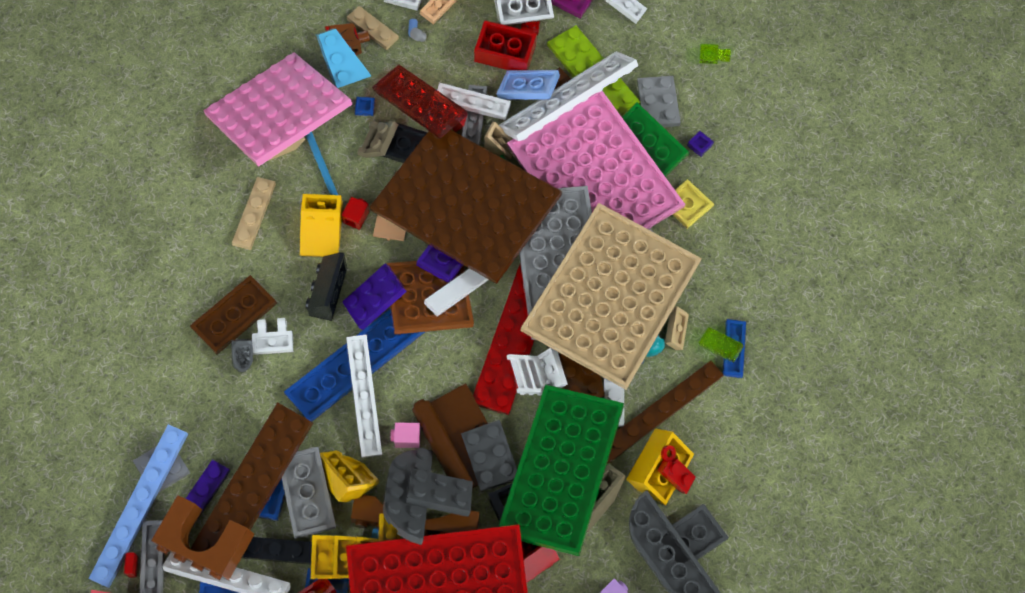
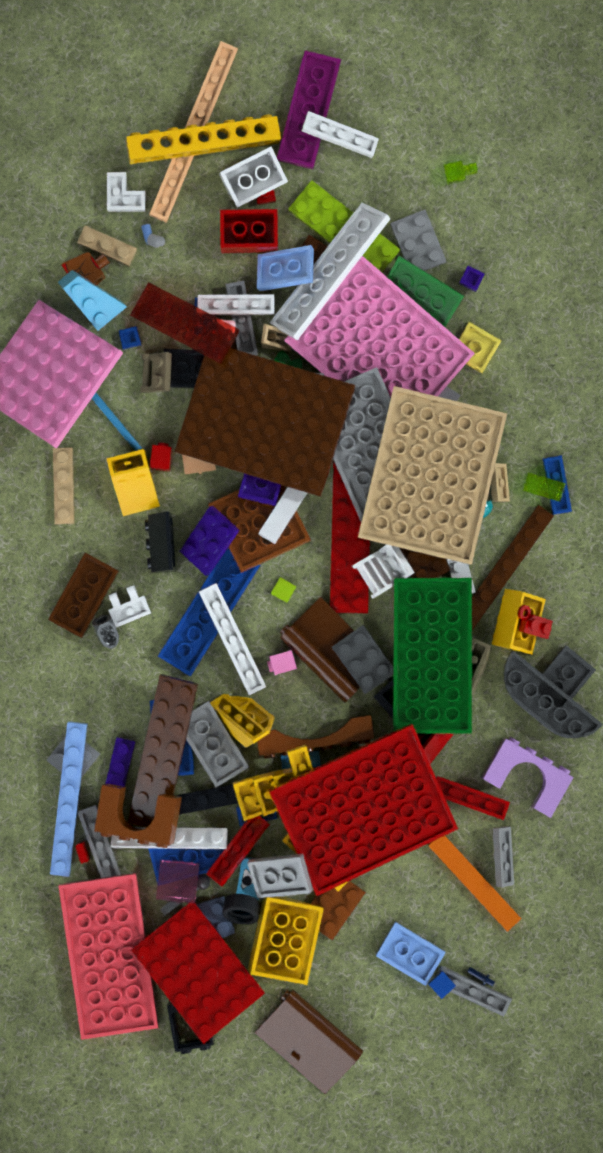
camera: 10 degrees left, 20 degrees up
(414, 488) = (310, 719): dark grey plate -> none
(431, 367) = (283, 590): none -> lime tile

